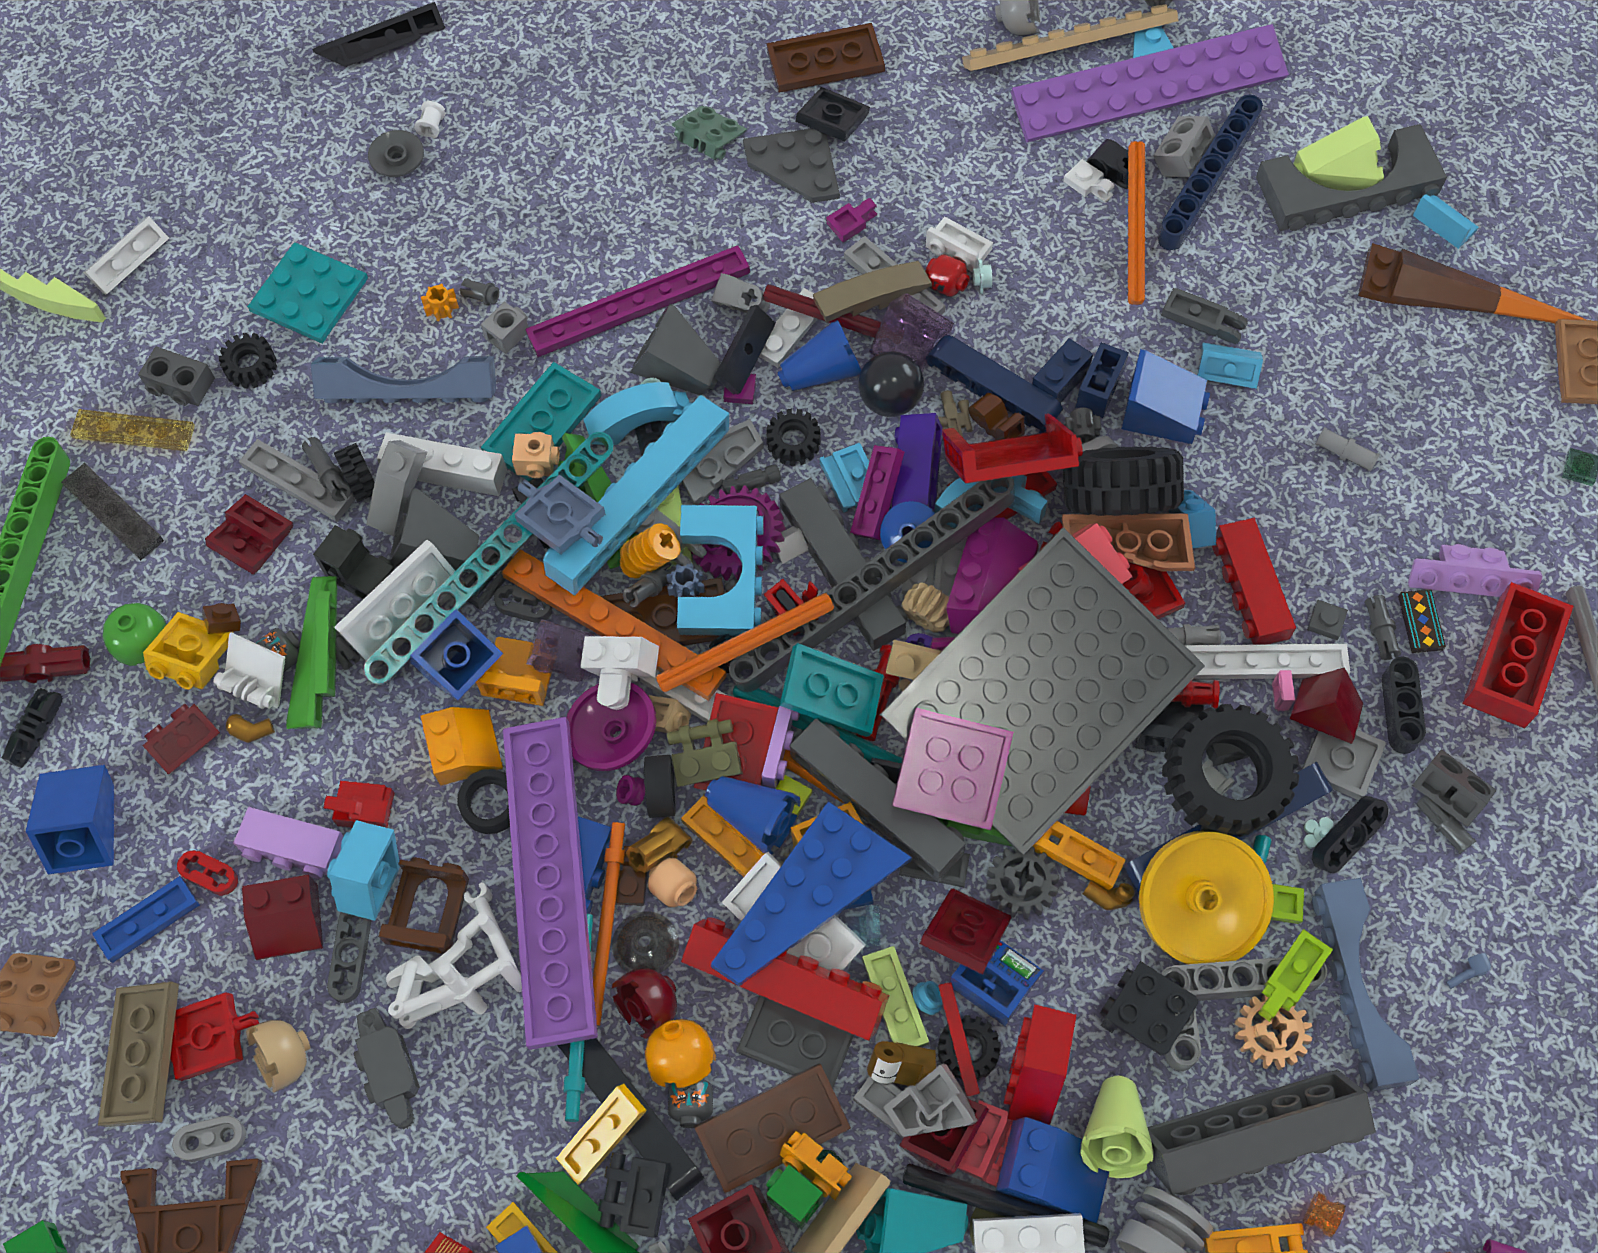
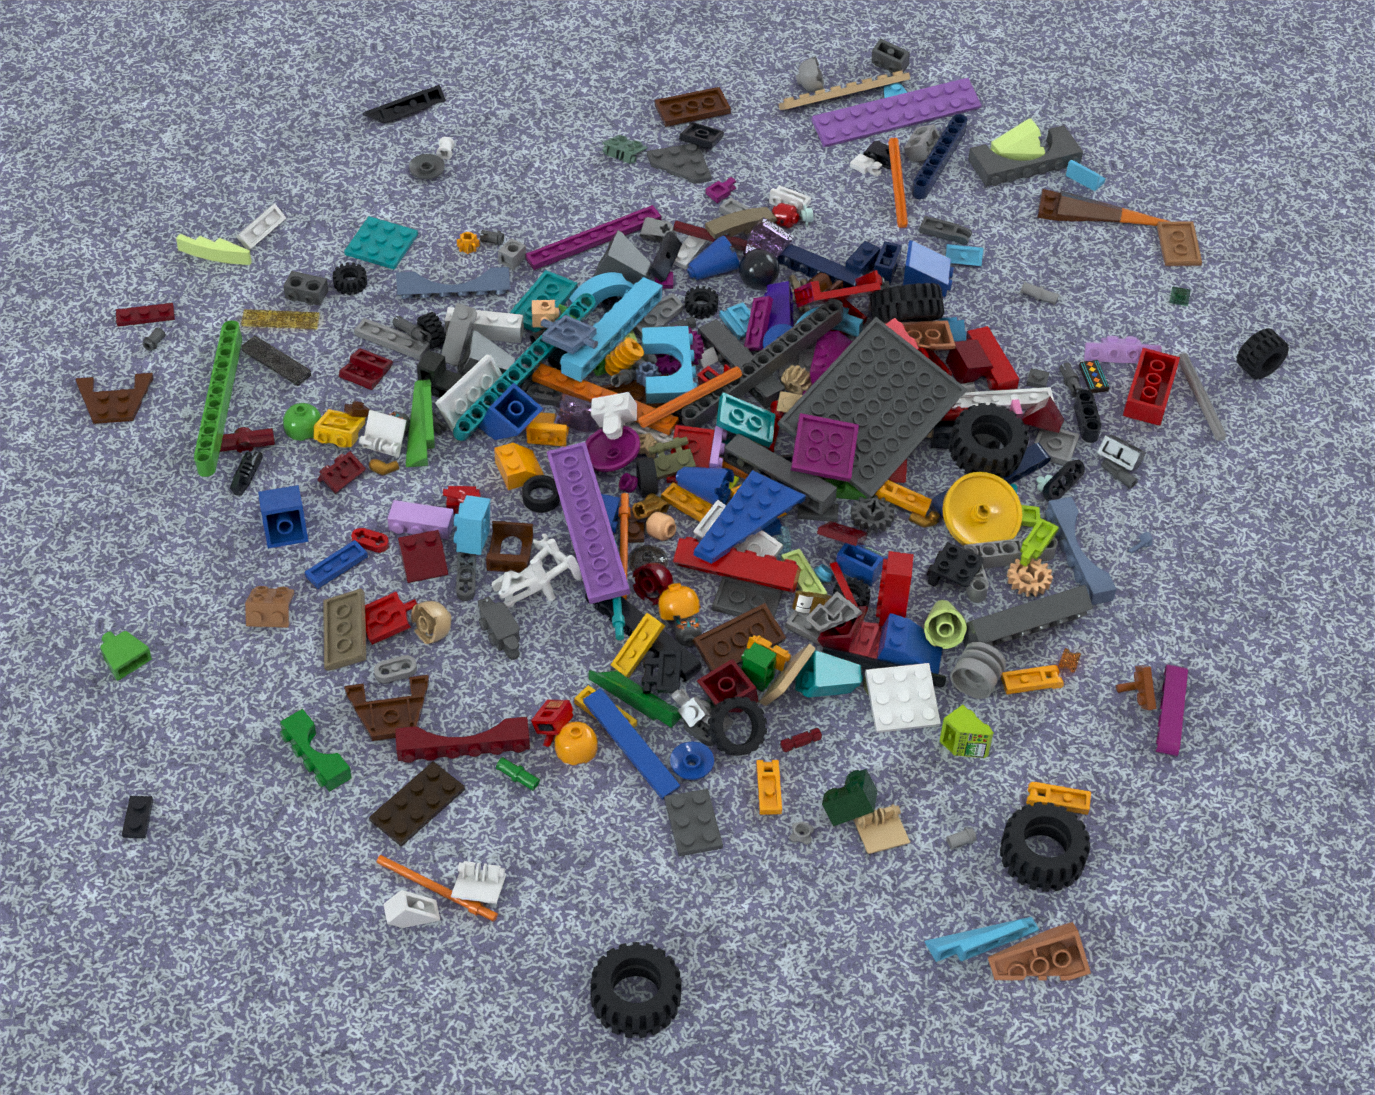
camera: 10 degrees left, 15 degrees down
(1215, 586) = (968, 361): none -> dark red slope

